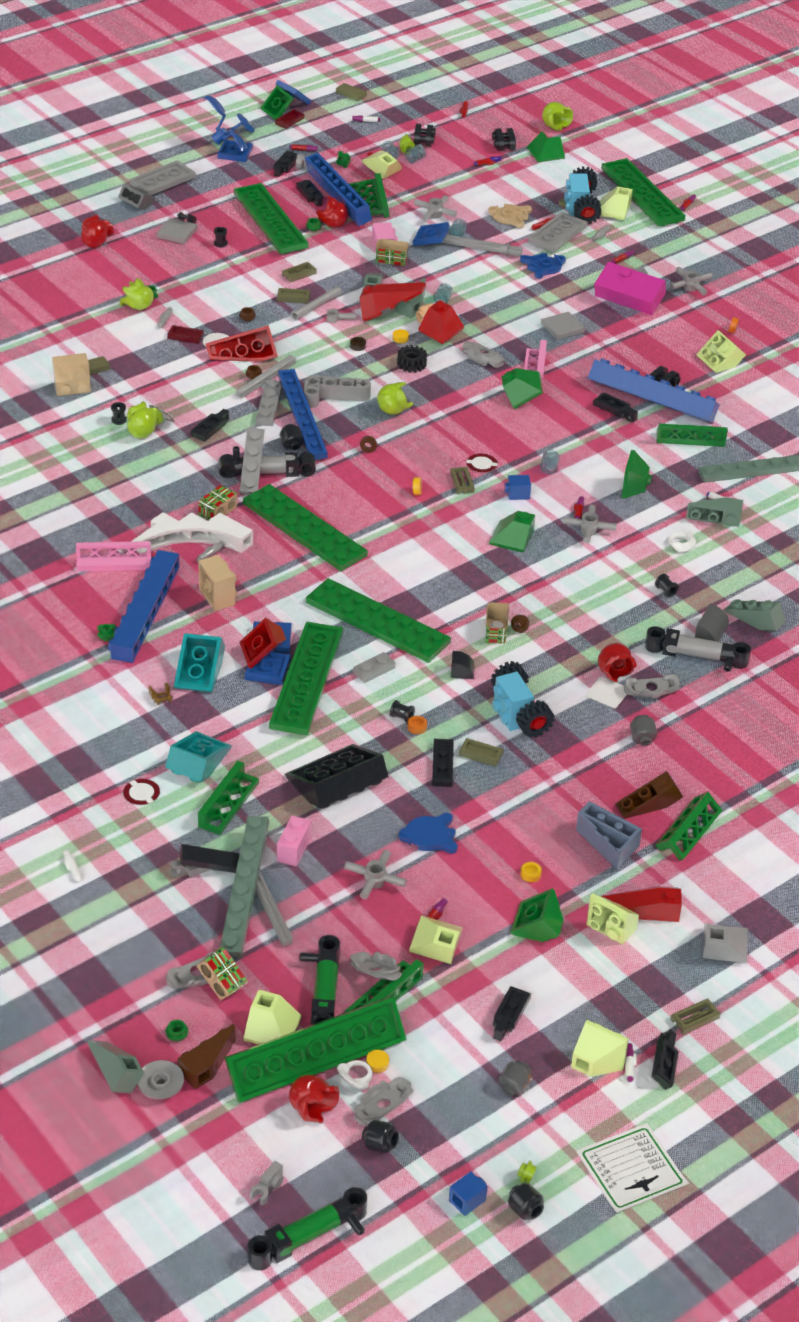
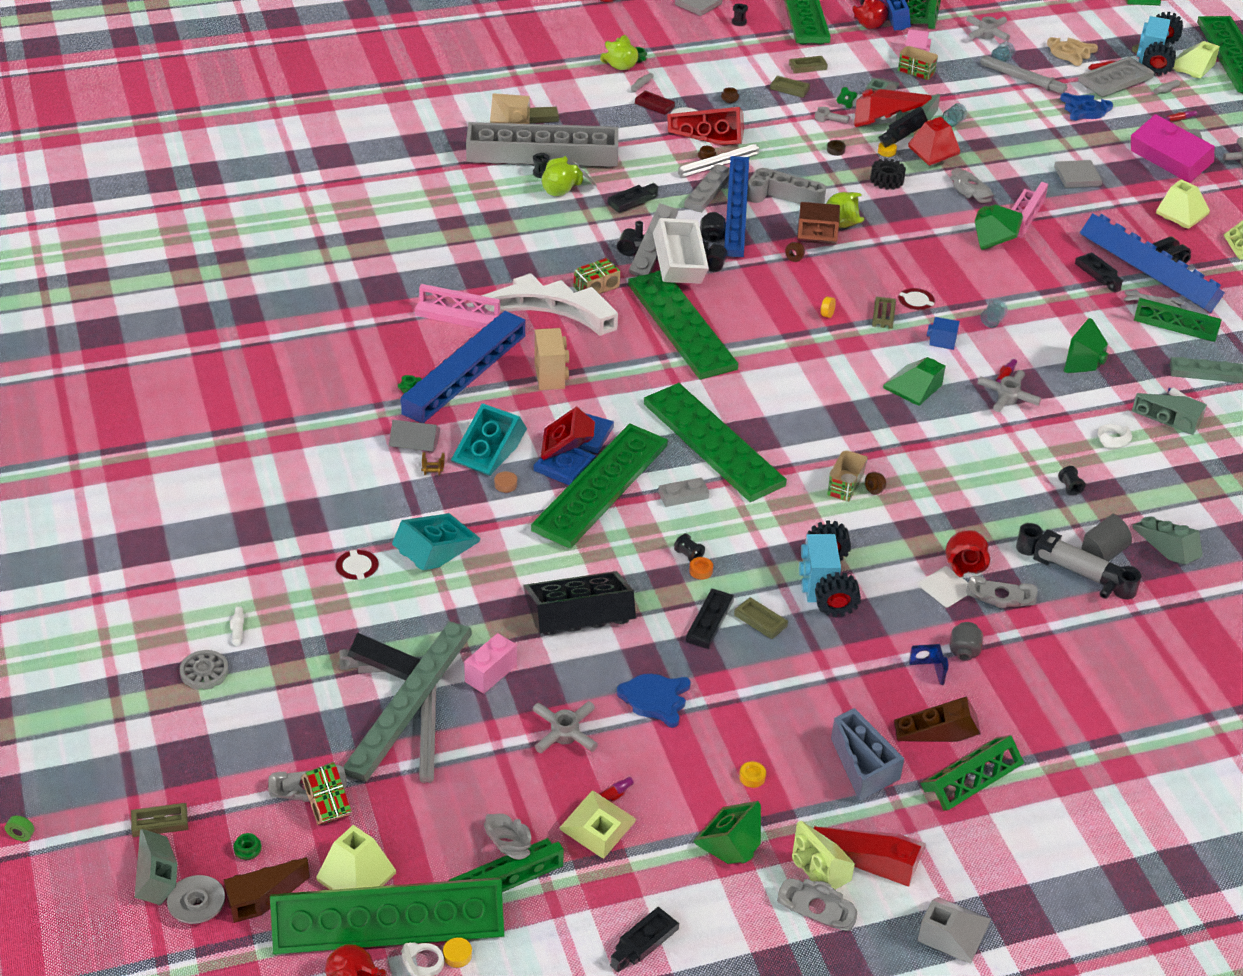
camera: 20 degrees right, 0 degrees up
(63, 907) = (204, 669): none -> light grey wheel
(96, 1032) = (158, 822): none -> olive tile
(97, 395) = (520, 142): none -> light grey brick
(134, 674) = (414, 435): none -> brick
(210, 551) = (569, 325): light grey piece -> none
(221, 798) = (437, 593): green fence -> none
(228, 694) = (505, 482): none -> nougat tile
(282, 465) = (680, 250): none -> white piece
(303, 310) = (791, 103): light grey piece -> none
(313, 224) = (846, 20): green plate -> none
(326, 977) = (444, 836): piece -> none
(343, 299) = (847, 102): none -> green plate
(379, 415) = (818, 223): none -> copper slope
(410, 314) = (903, 127): none -> black hinge
(431, 234) = (970, 52): blue tile -> none
(462, 665) = (784, 514): black brick -> none
(626, 748) = (935, 657): none -> clear blue bracket
(638, 953) = (797, 896): none -> light grey piece
(652, 421) = (1135, 295): none -> light grey piece
(658, 336) = (1183, 205): none -> yellowish green slope

